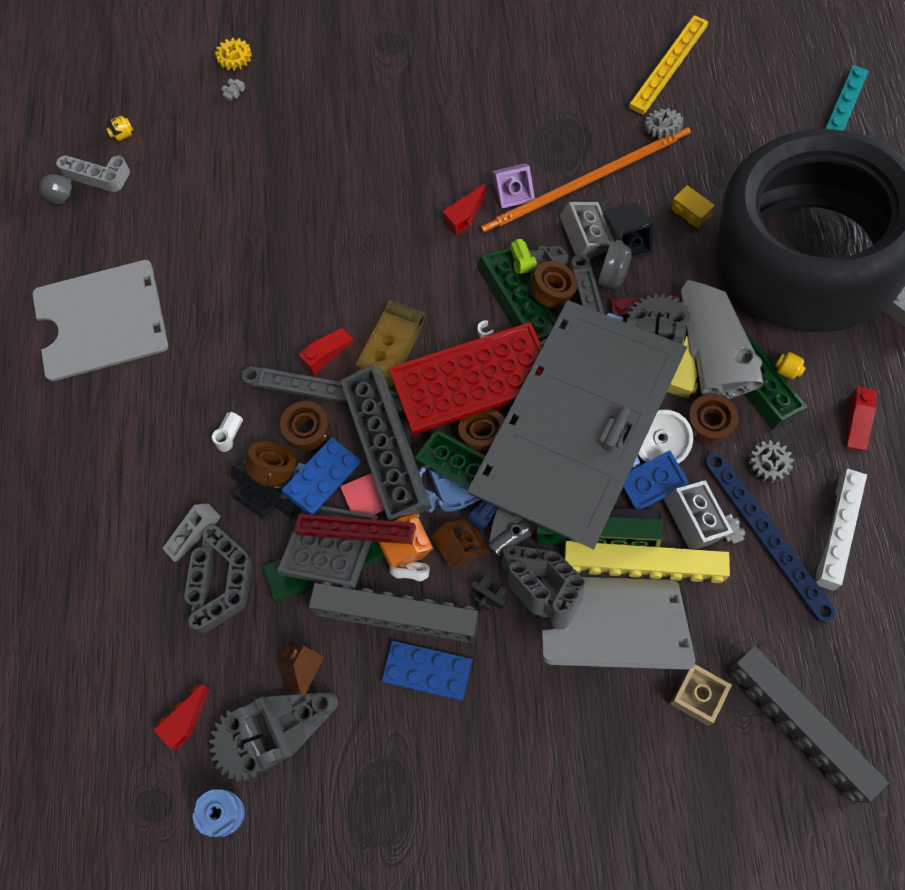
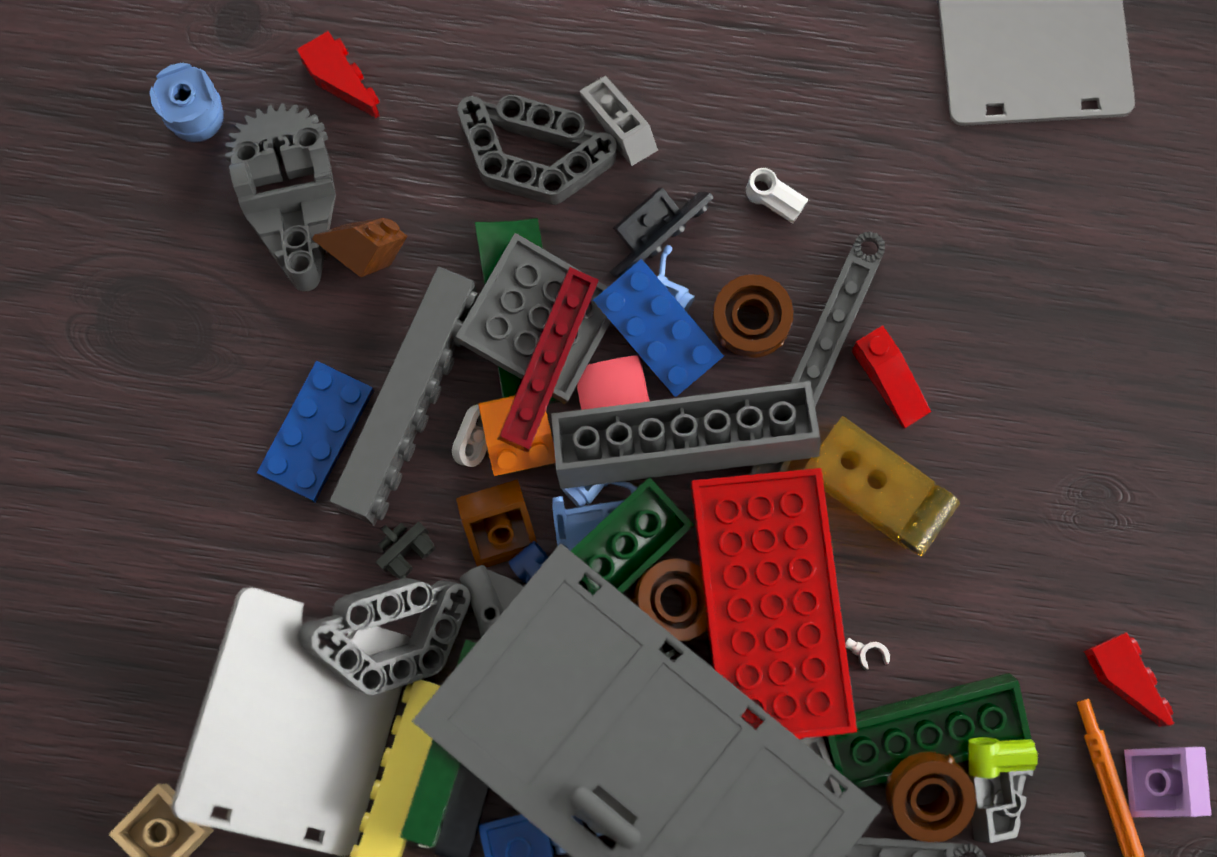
camera: 100 degrees right, 10 degrees up
(269, 463) = (714, 254): reddish brown piece -> none

